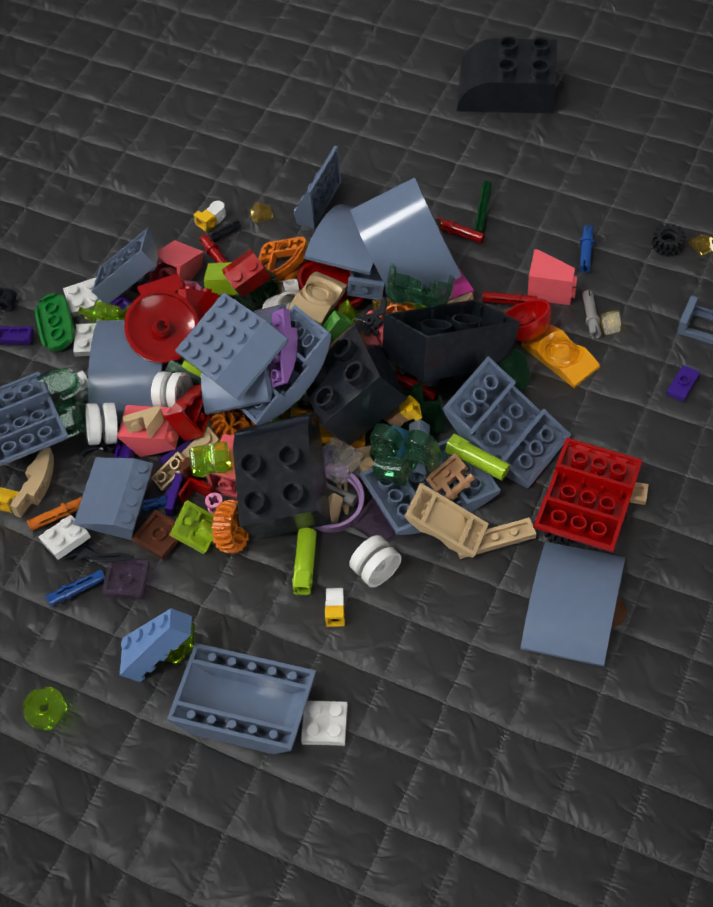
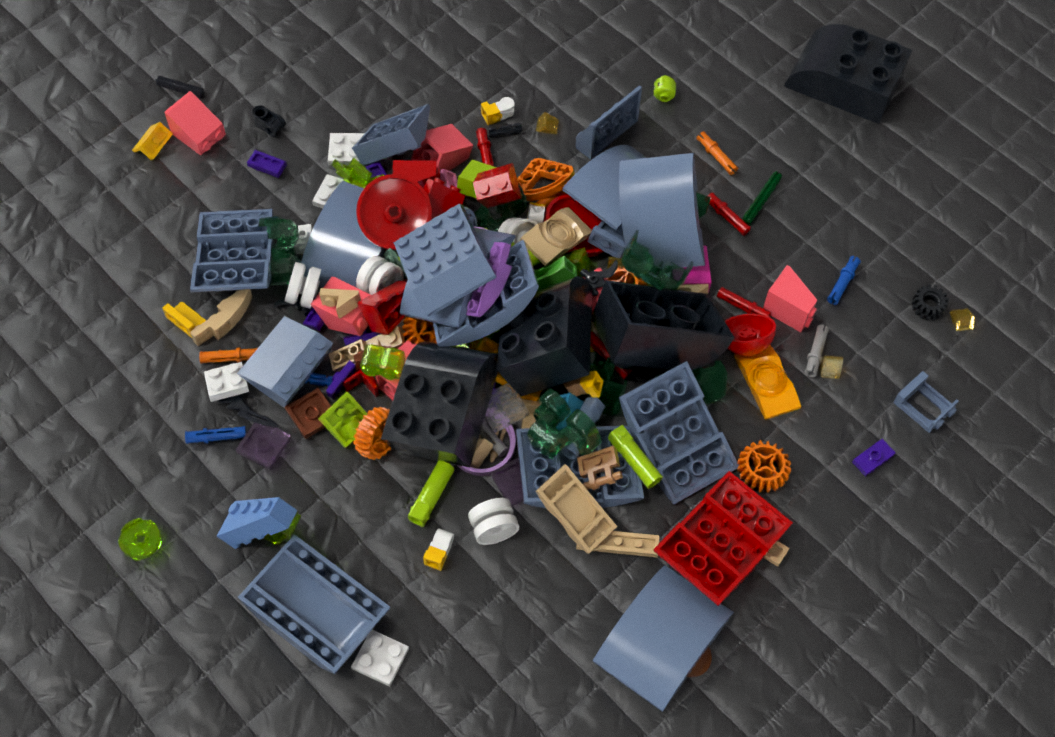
camera: 15 degrees right, 5 degrees up
(55, 322) = (308, 164): green tile -> none
(213, 500) = (373, 400): bright pink bush -> none
(354, 146) = (665, 88): none -> lime head
(426, 184) = (713, 149): none -> orange pin
(593, 424) = (761, 456): none -> orange gear

